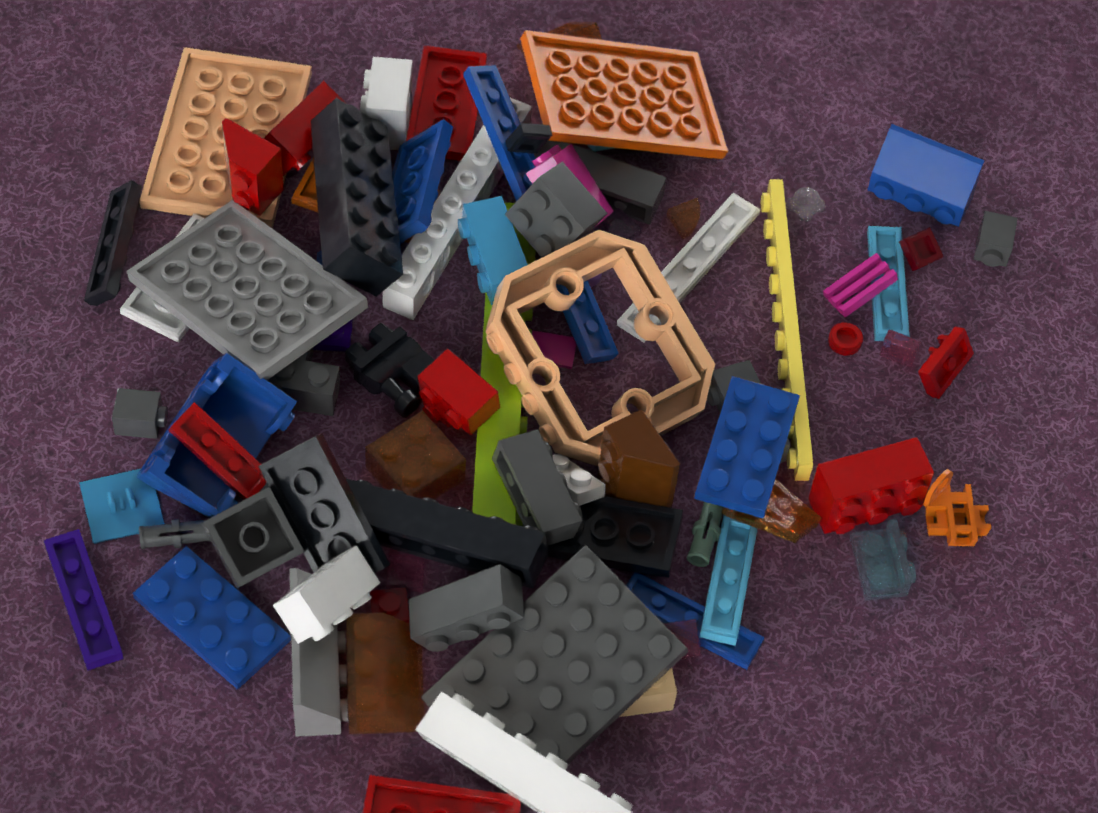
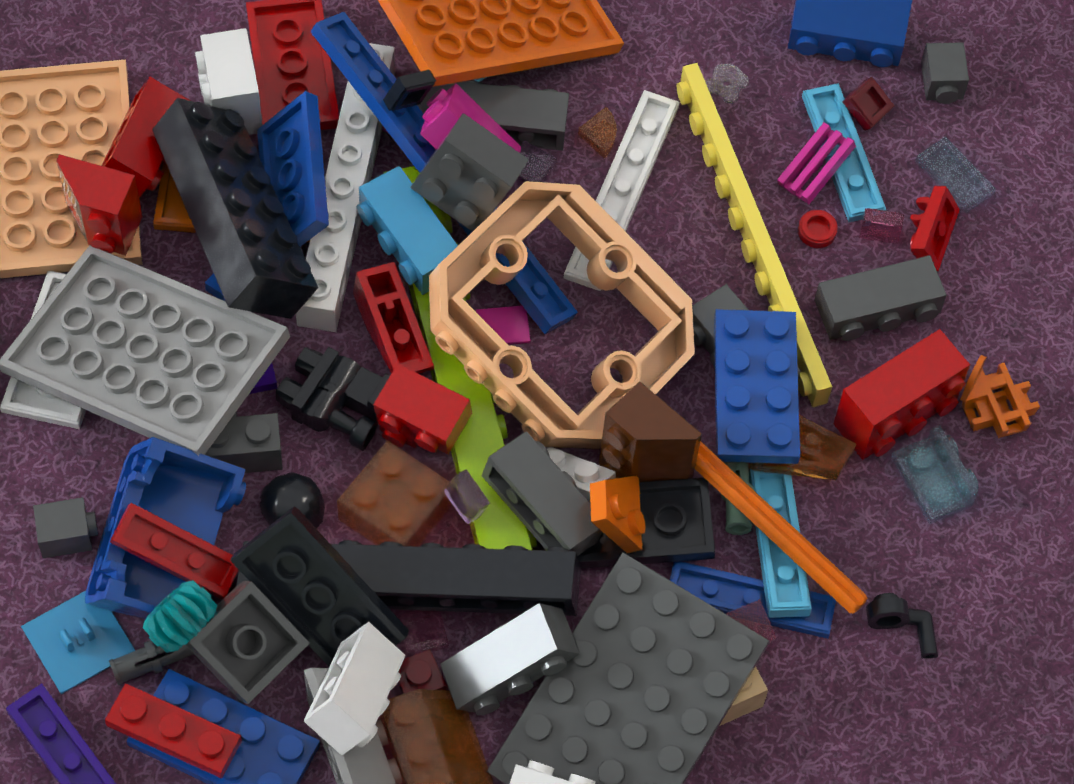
camera: 15 degrees left, 5 degrees up
(172, 593) = (173, 730): none -> red plate
(203, 500) = (180, 616): none -> teal gear
(339, 437) = (291, 491): none -> black hair
(459, 316) = (391, 318): none -> red slope
(471, 470) = (466, 497): none -> tile
(595, 513) = (618, 512): none -> orange wing
(728, 566) = (779, 530): none -> orange axle
(808, 662) = (892, 612): none -> black plate
(880, 406) = (880, 298): none -> dark grey brick
(980, 325) = (952, 169): none -> clear light blue tile

